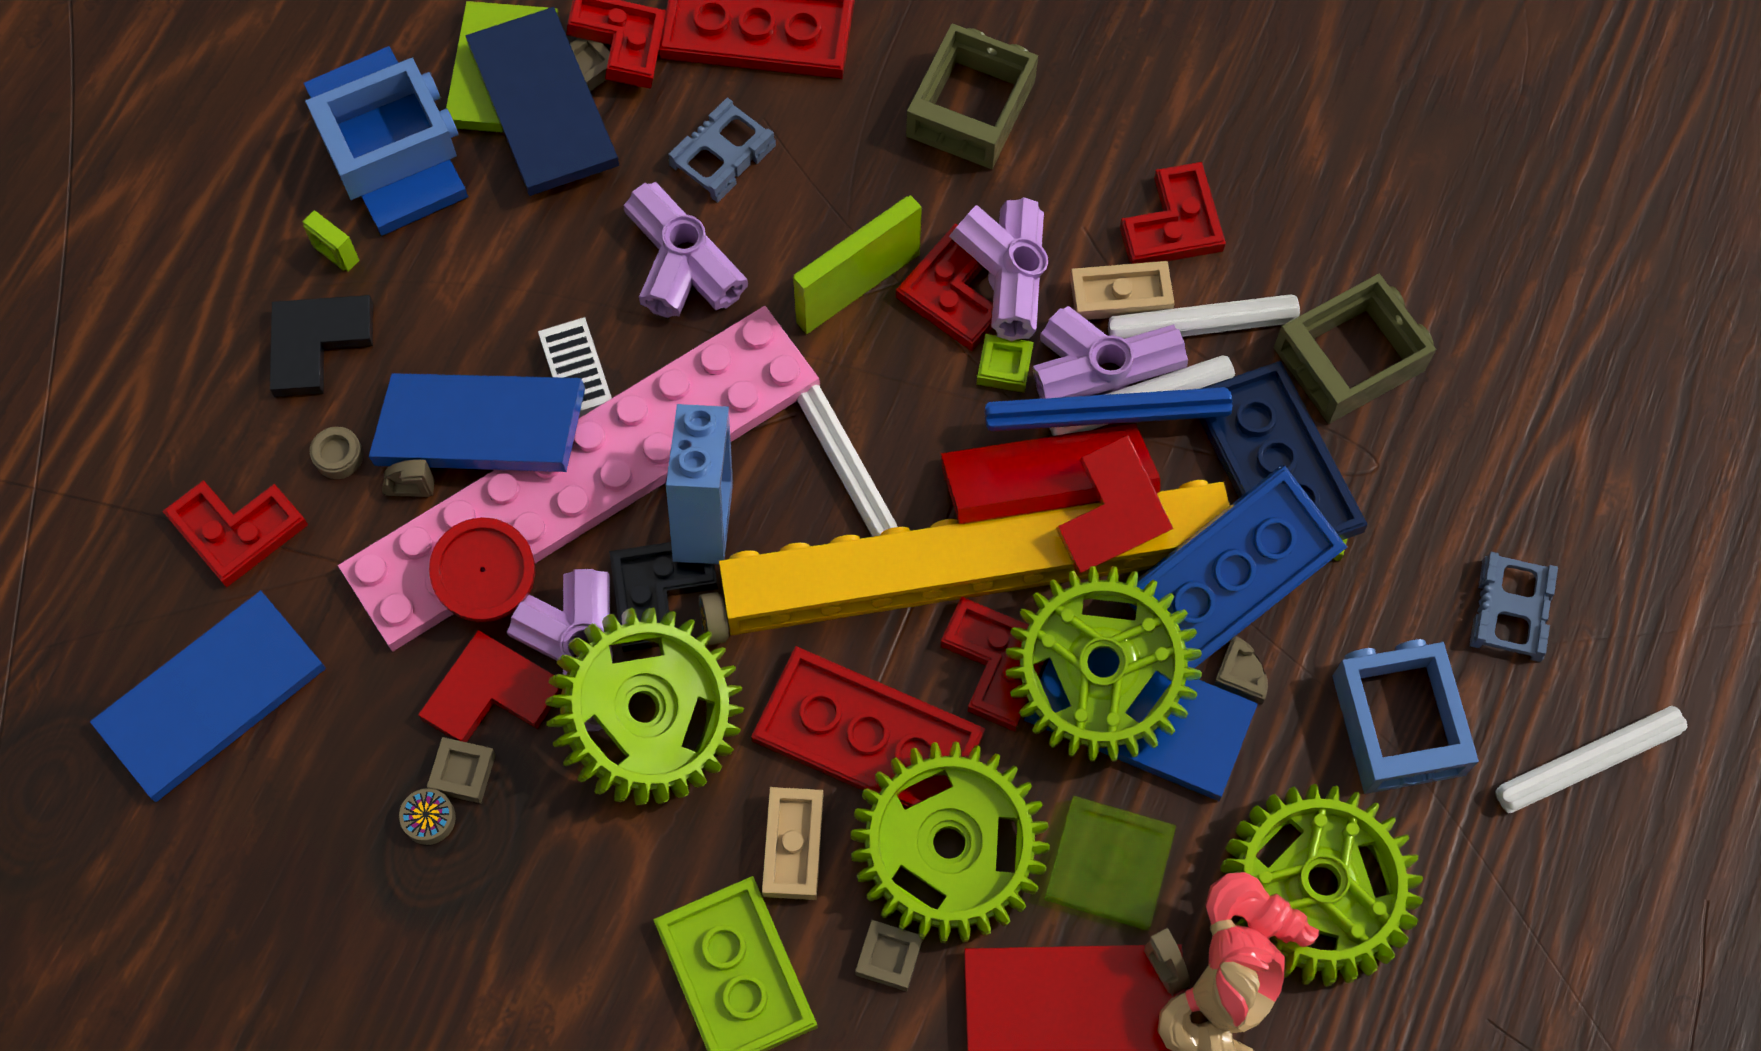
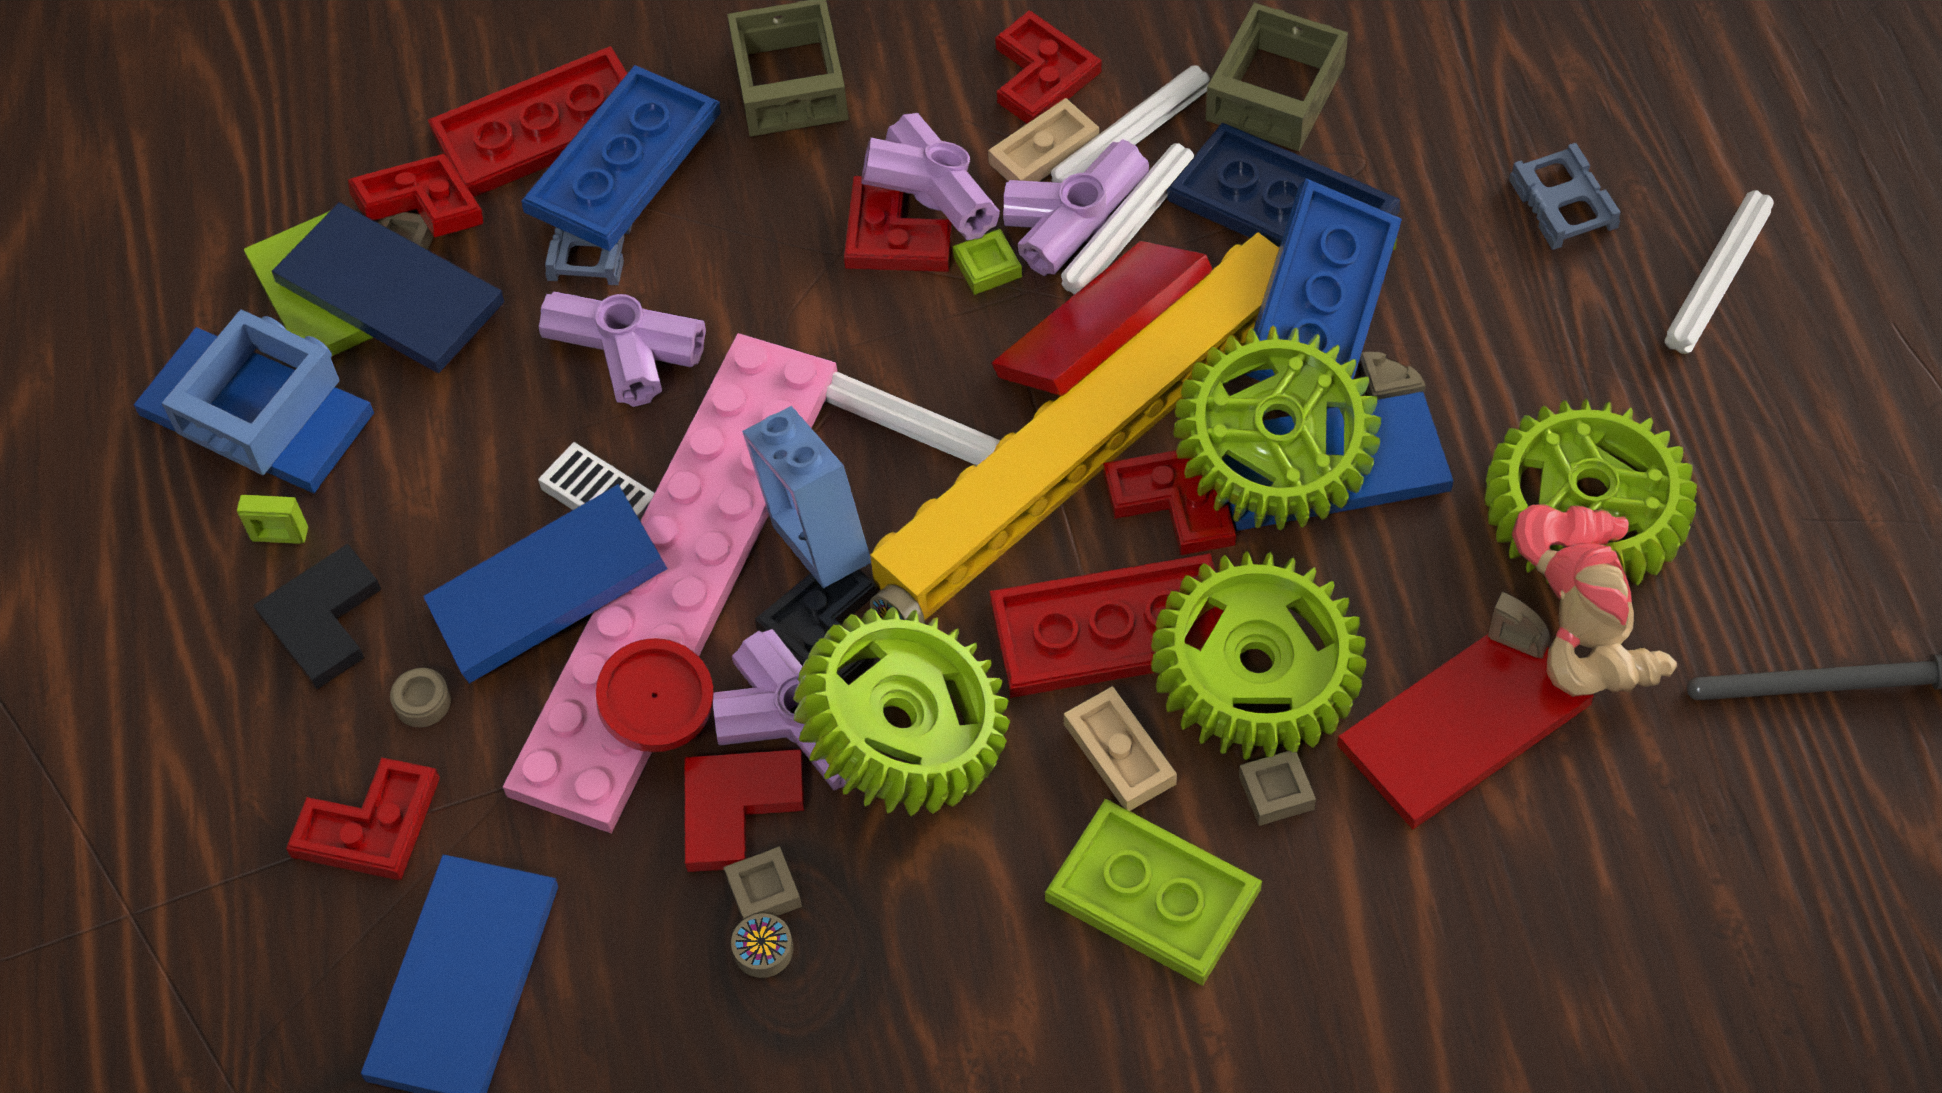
camera: 30 degrees left, 10 degrees down
(408, 479) = (512, 674): dark tan tile -> none
(788, 97) = (621, 157): none -> blue tile
(857, 264) = (799, 248): lime tile -> none
(1108, 409) = (1110, 237): blue axle -> none
(1110, 863) = (1403, 593): clear neon green tile -> none
(1127, 513) = (1201, 296): red tile -> none
(1411, 768) = (1525, 358): medium blue window -> none

